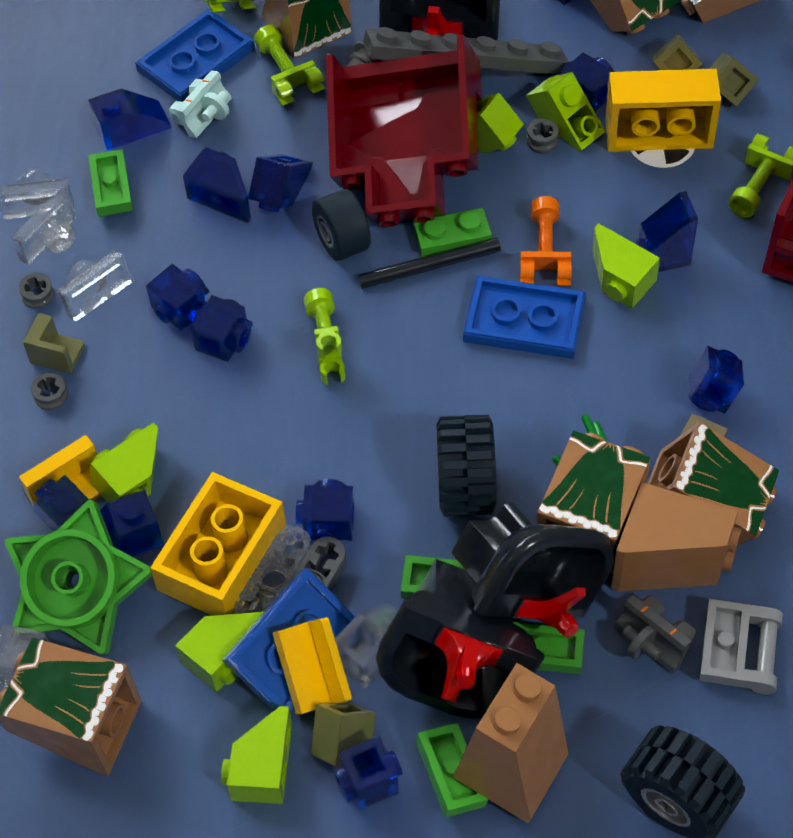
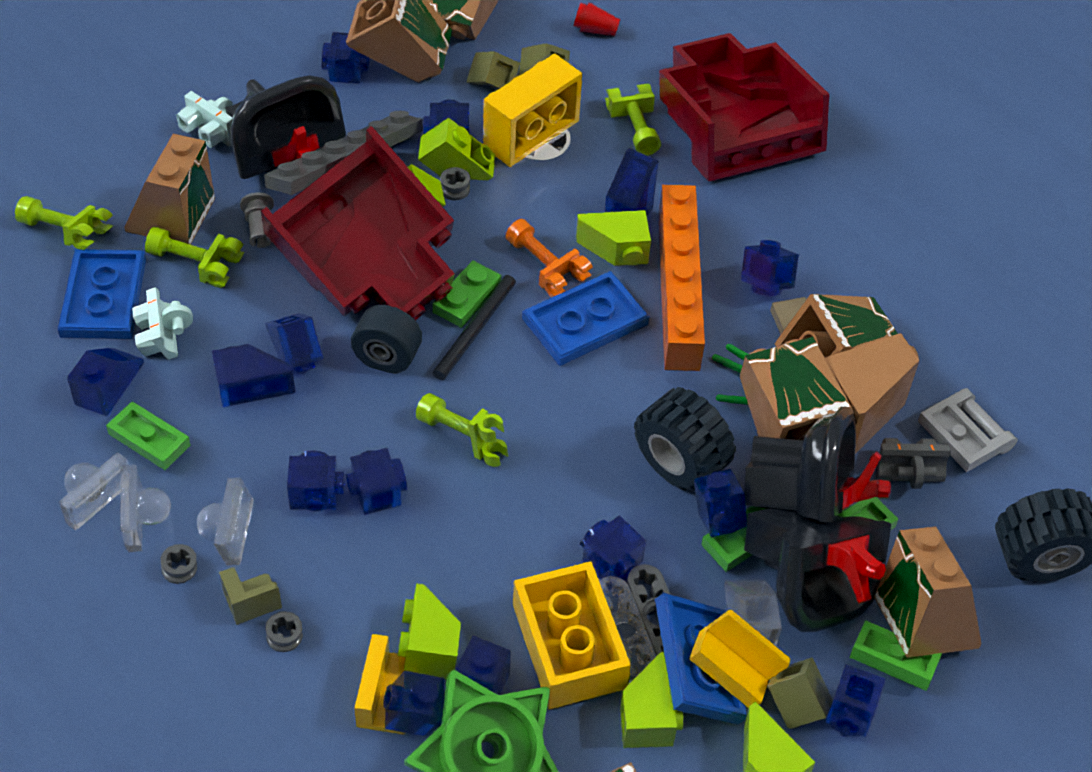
camera: 50 degrees left, 5 degrees down
(435, 534) = (721, 503): none -> clear blue brick
(633, 335) = (681, 278): none -> orange brick

